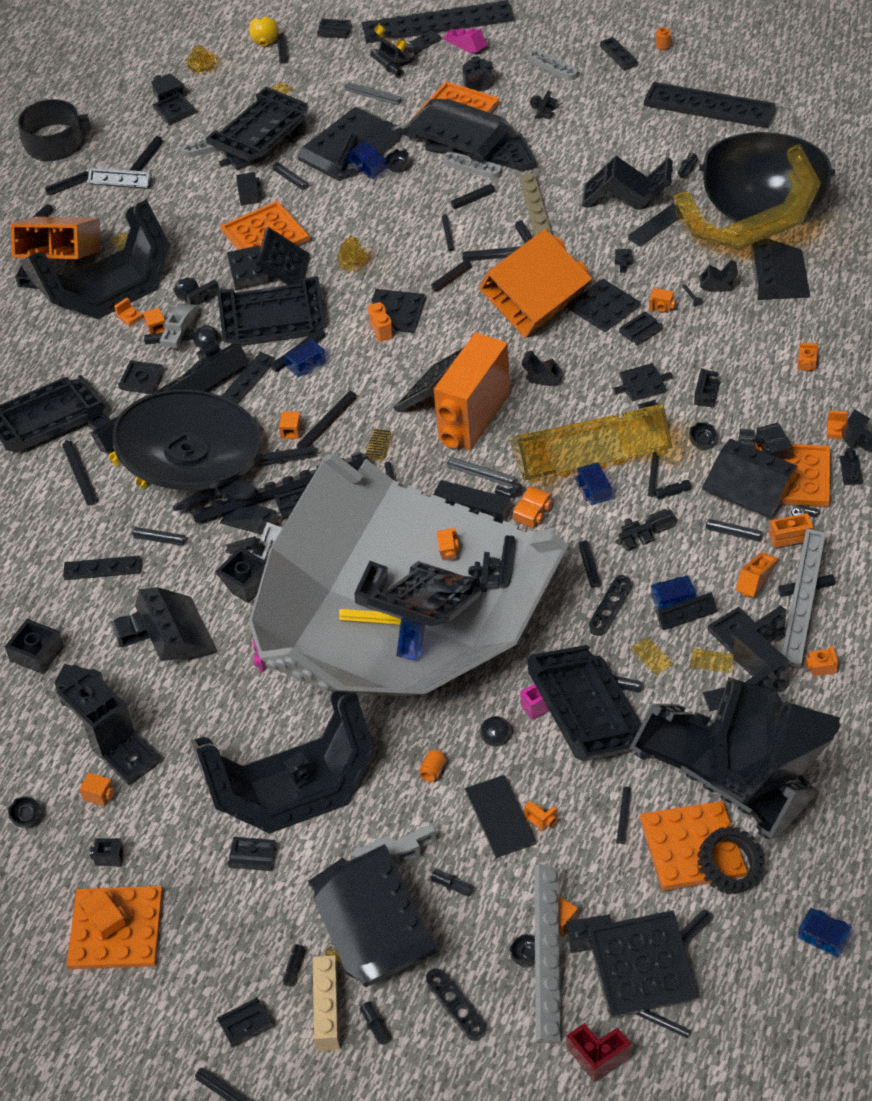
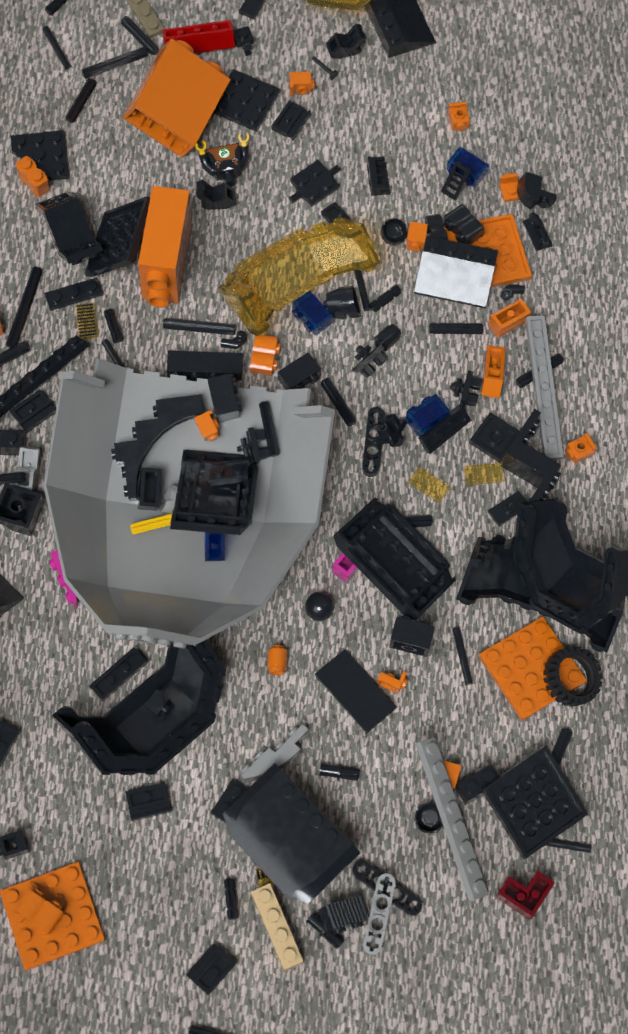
camera: 30 degrees left, 20 degrees up
(274, 736) = (118, 674): none -> black plate
(376, 420) = (73, 294): none -> black plate
(392, 363) = (69, 228): none -> black bracket
(398, 1010) = (343, 914): none -> black brick
(401, 453) = (113, 326): none -> black axle
(414, 526) = (133, 453): none -> black arch
(435, 1022) = (377, 913): none -> light grey beam
(471, 520) = (223, 397): none -> black brick
(563, 346) = (225, 161): none -> torso
(567, 527) = (299, 373): none -> black brick
(574, 777) = (412, 636): none -> black brick
(588, 247) = (204, 36): none -> red brick
(627, 481) = (343, 302): none -> black helmet
(630, 600) = (392, 431): none -> black hips
(719, 580) = (471, 382): none -> black hips
(721, 439) = (416, 236): none -> orange brick
(790, 404) = (463, 167): none -> black slope
(799, 399) = (480, 167): none -> clear blue brick

